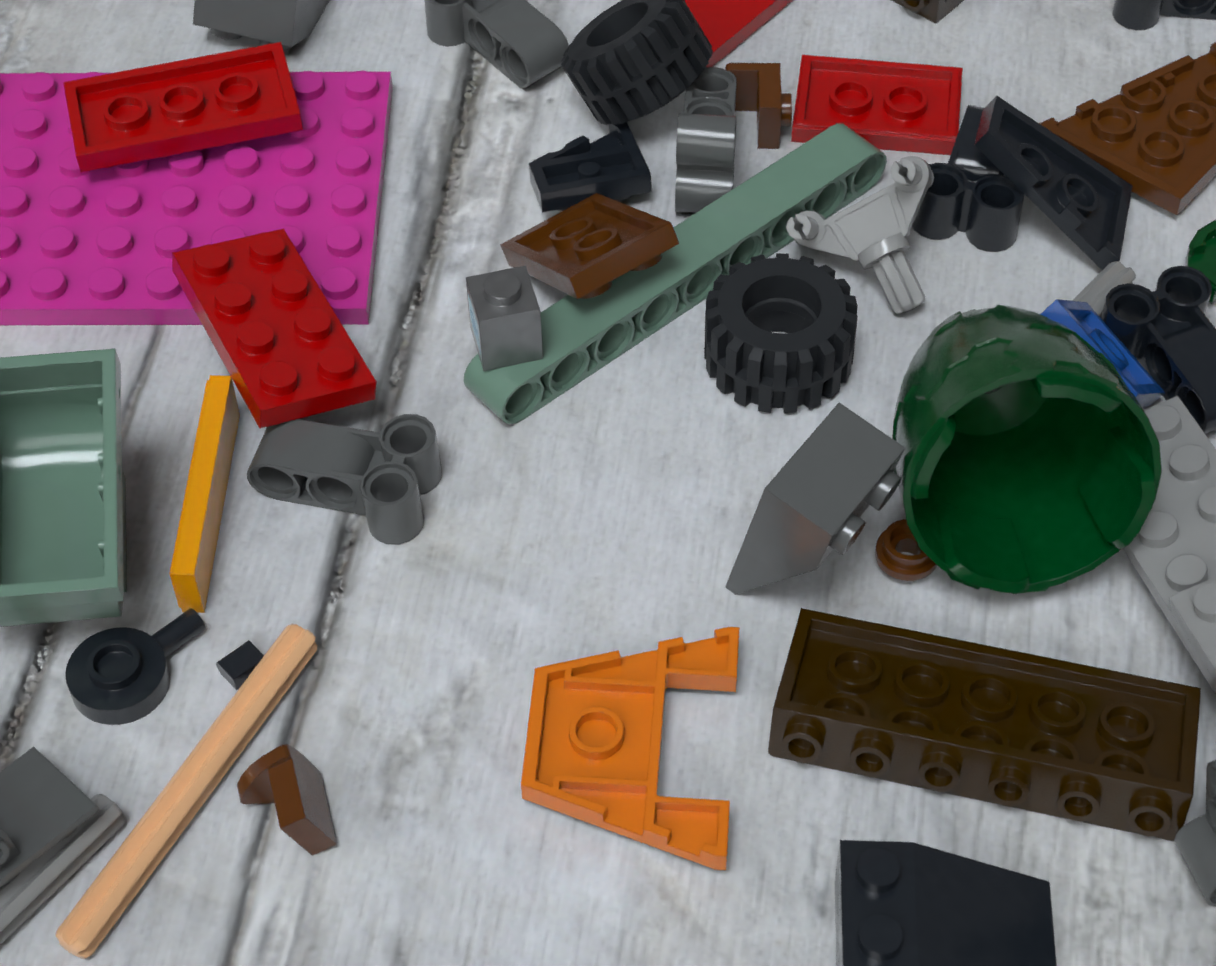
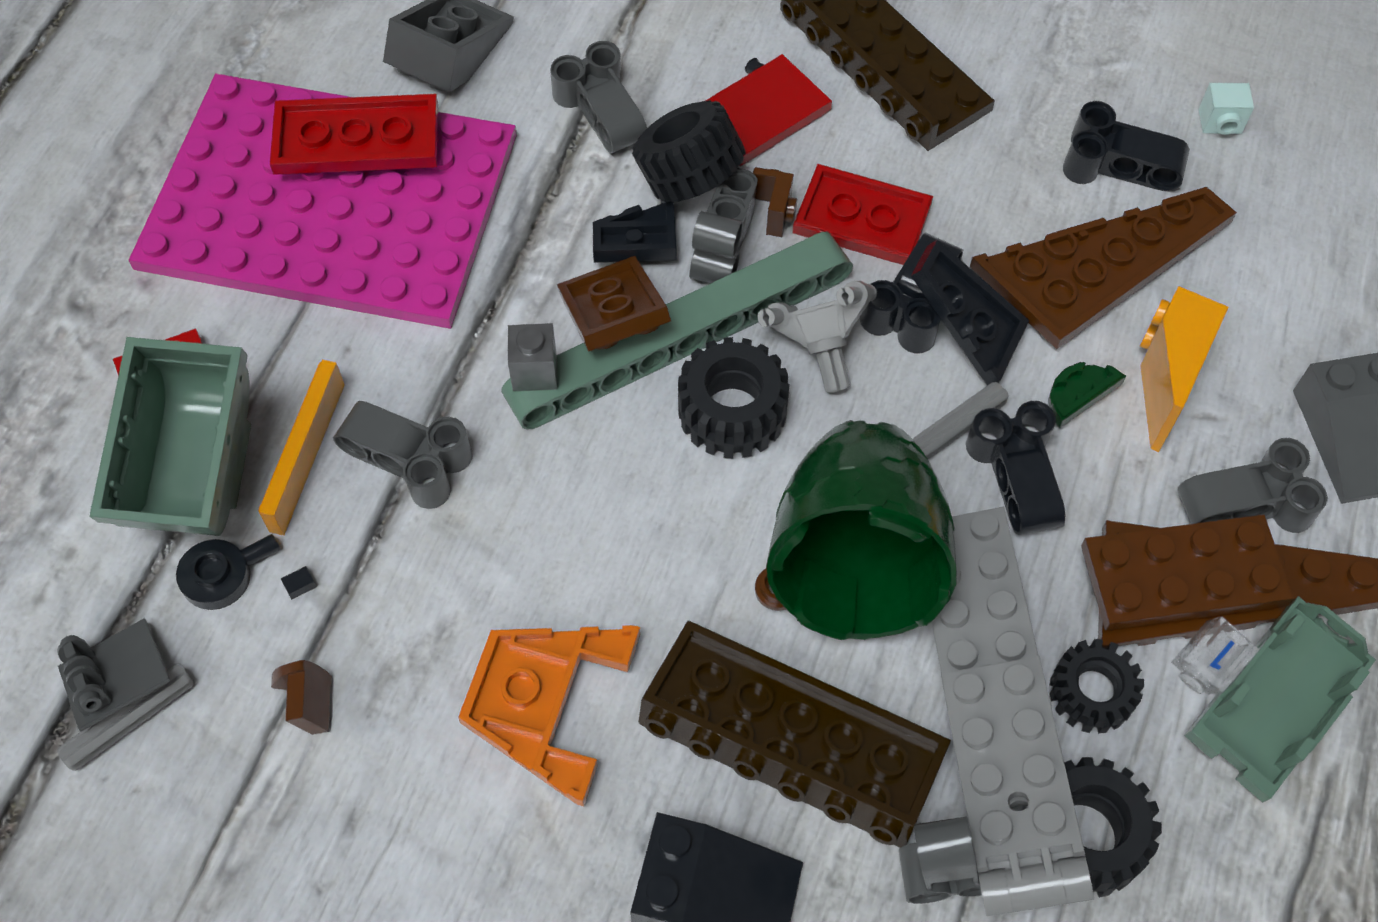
camera: 10 degrees right, 10 degrees up
(185, 793) = (238, 671): light nougat axle -> none
(273, 328) = (374, 329): red plate -> none
(817, 501) = (709, 551): dark grey slope -> none
(1089, 326) = (957, 464): blue tile -> none

